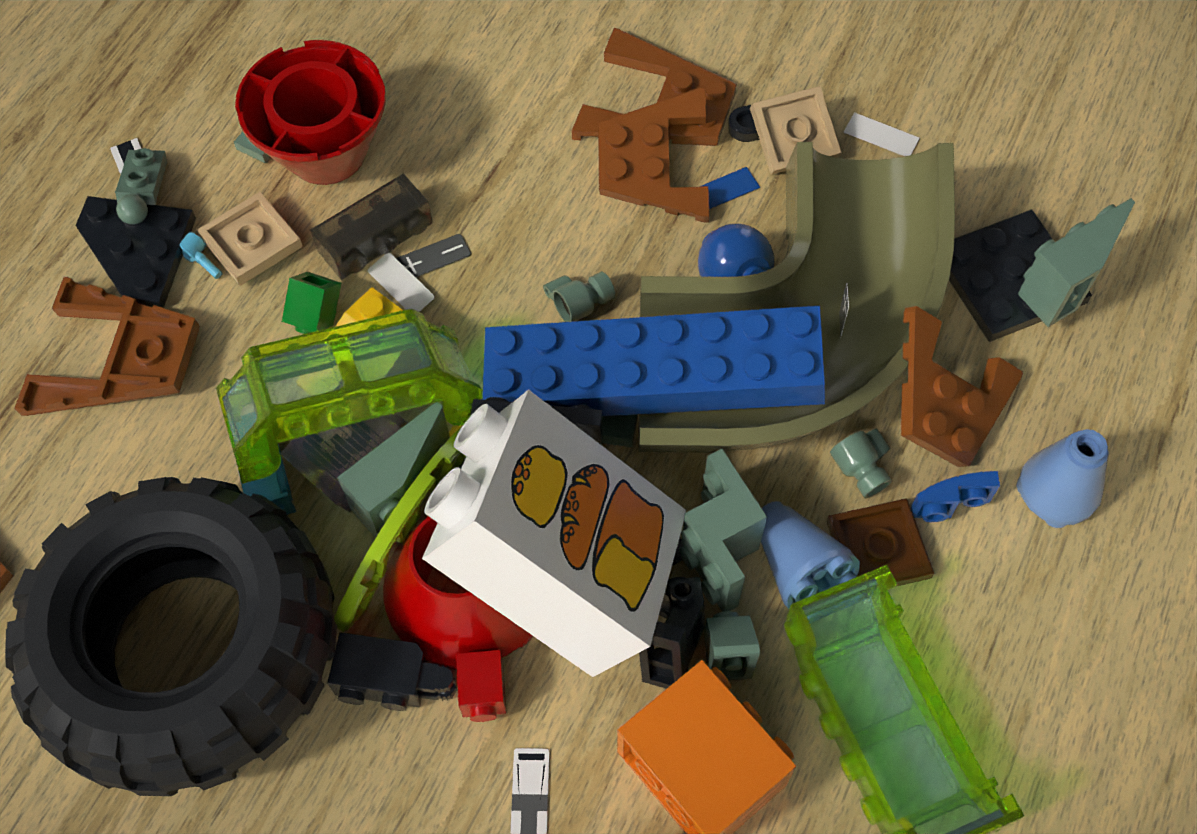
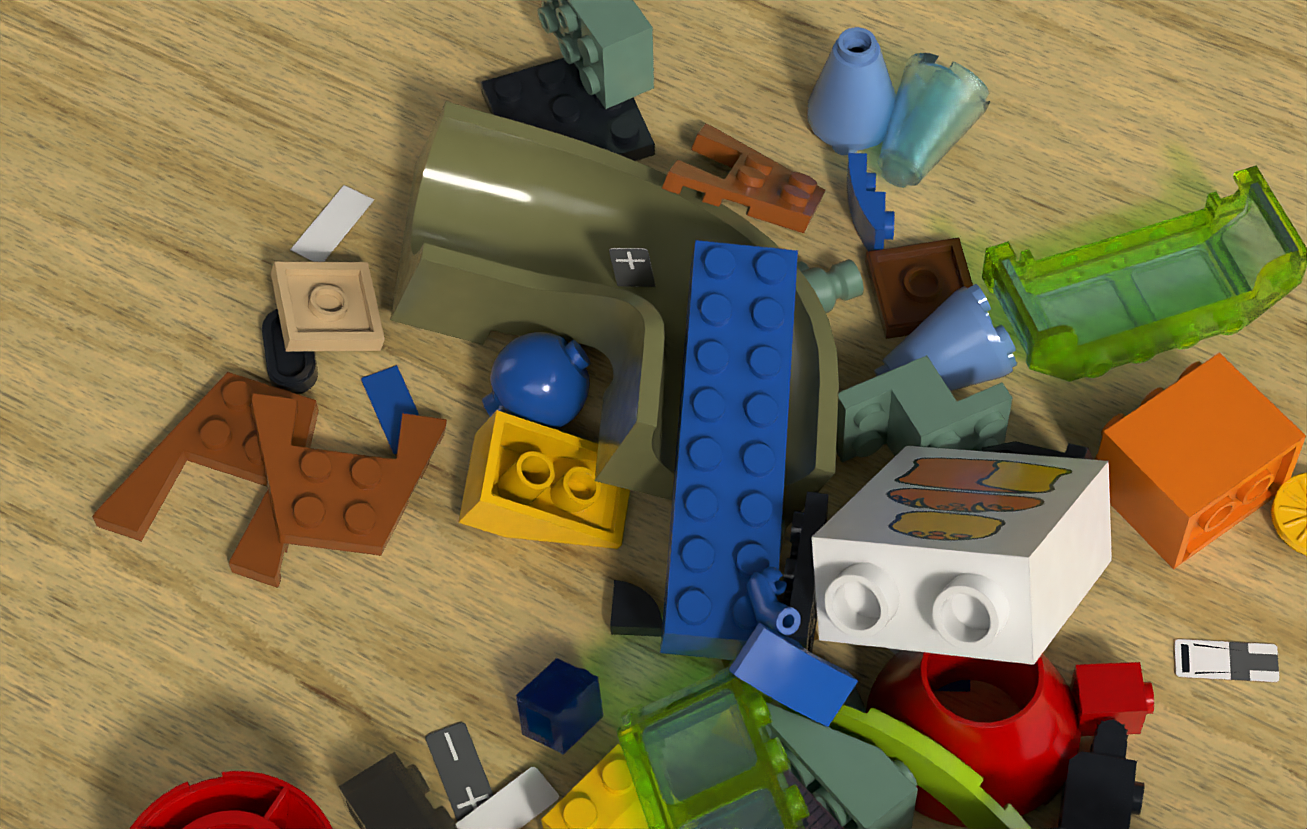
camera: 85 degrees left, 5 degrees down
(445, 400) = (793, 675): none -> blue slope
(469, 299) = (560, 705): none -> clear blue brick
(498, 385) = (767, 609): none -> blue arm
(577, 299) = (563, 582): sand green piece -> none
(649, 252) = (540, 486): none -> yellow slope
(731, 645) = (1061, 417): sand green slope -> none
(1050, 538) = (929, 117): none -> clear light blue cone

